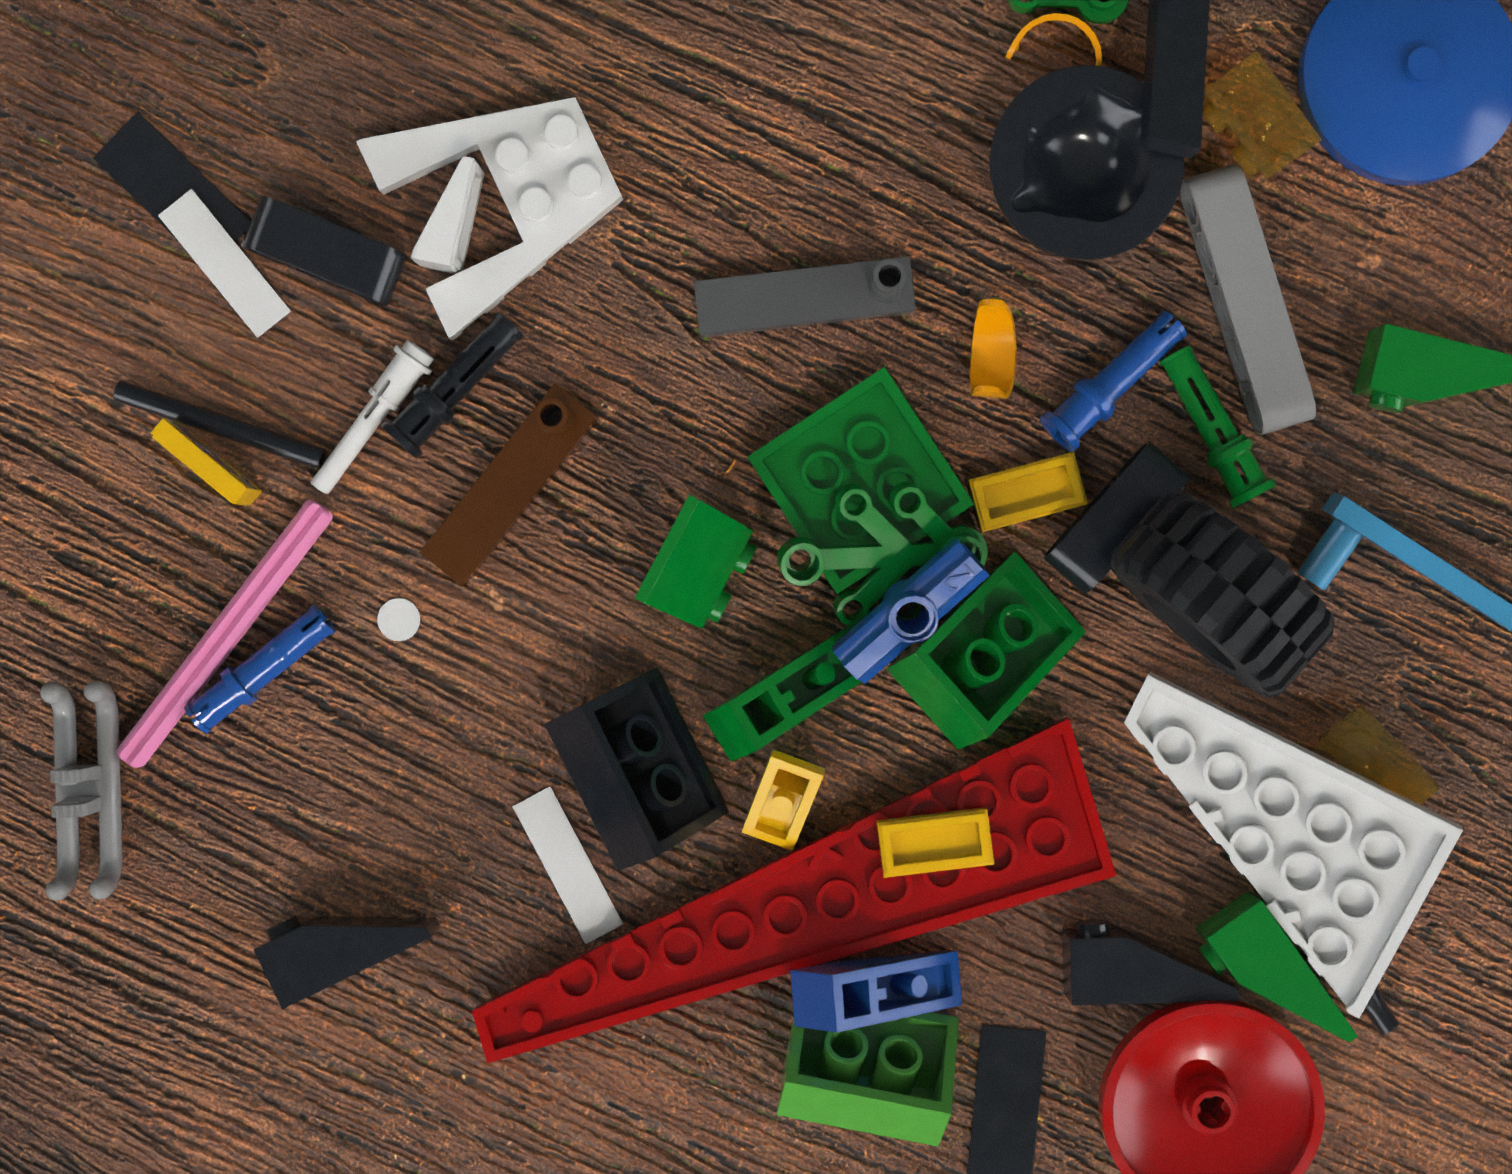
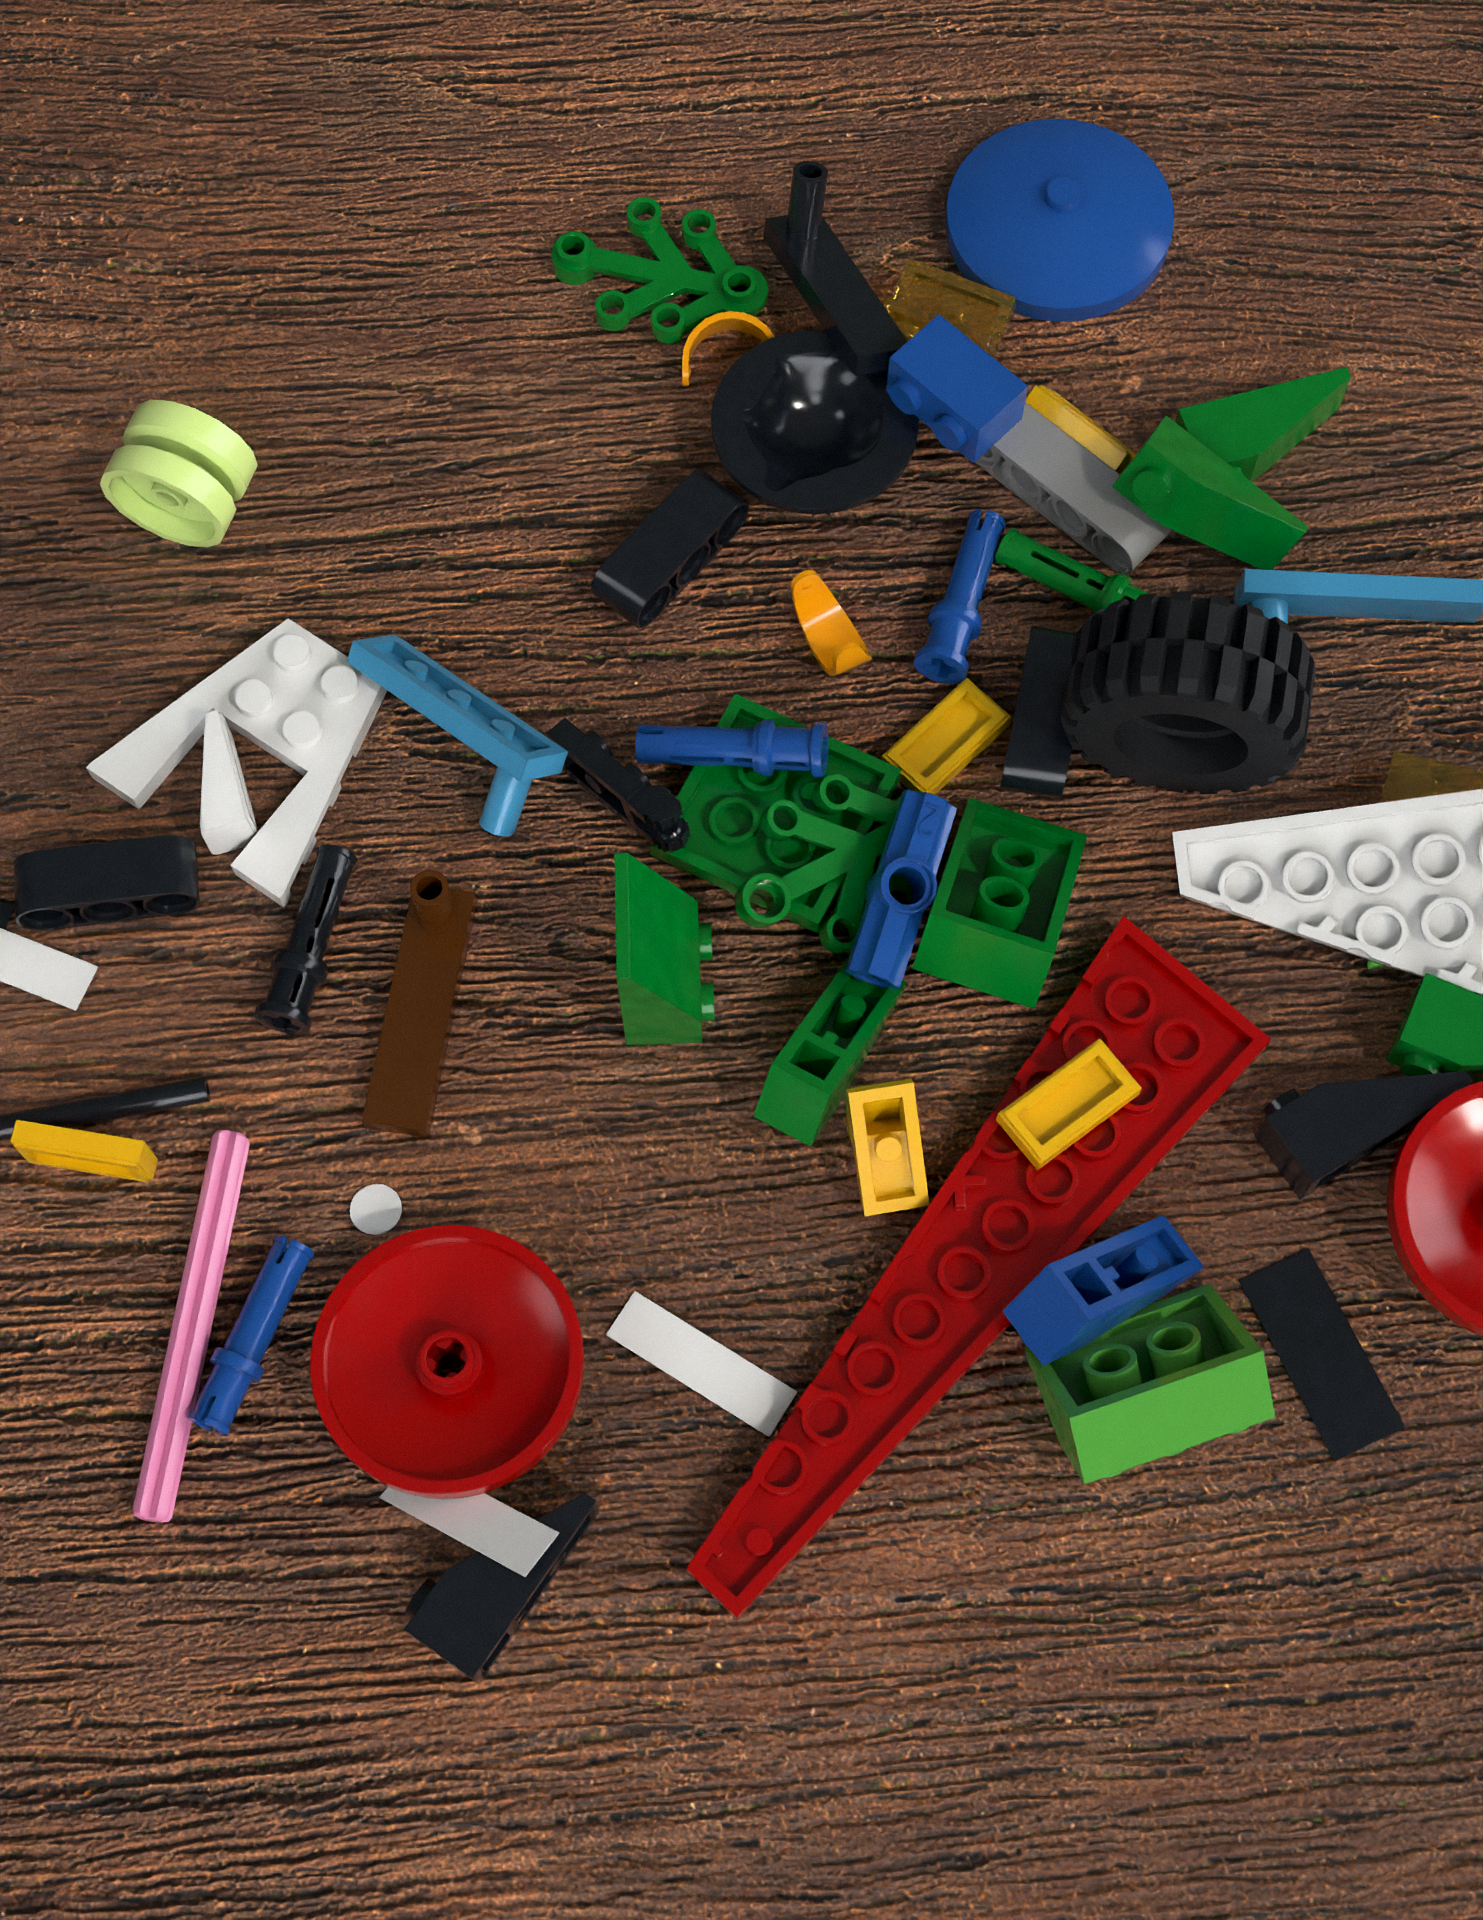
camera: 30 degrees left, 20 degrees down
(85, 789) = (115, 1571): light grey piece -> none
(333, 783) = (434, 1301): none -> red dish
(341, 892) = (482, 1525): none -> white sticker
(386, 394) = (244, 986): white pin -> none
(637, 769) = (714, 1211): black slope -> none
(661, 269) = (469, 716): none -> dark azure piece
(750, 401) = (622, 789): none -> black hinge
(805, 297) = (636, 666): dark grey piece -> none
(875, 433) = (761, 747): none -> blue pin
(907, 206) = (669, 548): none -> black beam
(1211, 208) = (955, 389): none -> blue brick
(1299, 290) = (1080, 427): none -> yellow tile
(1352, 413) = (1207, 499): none -> green slope

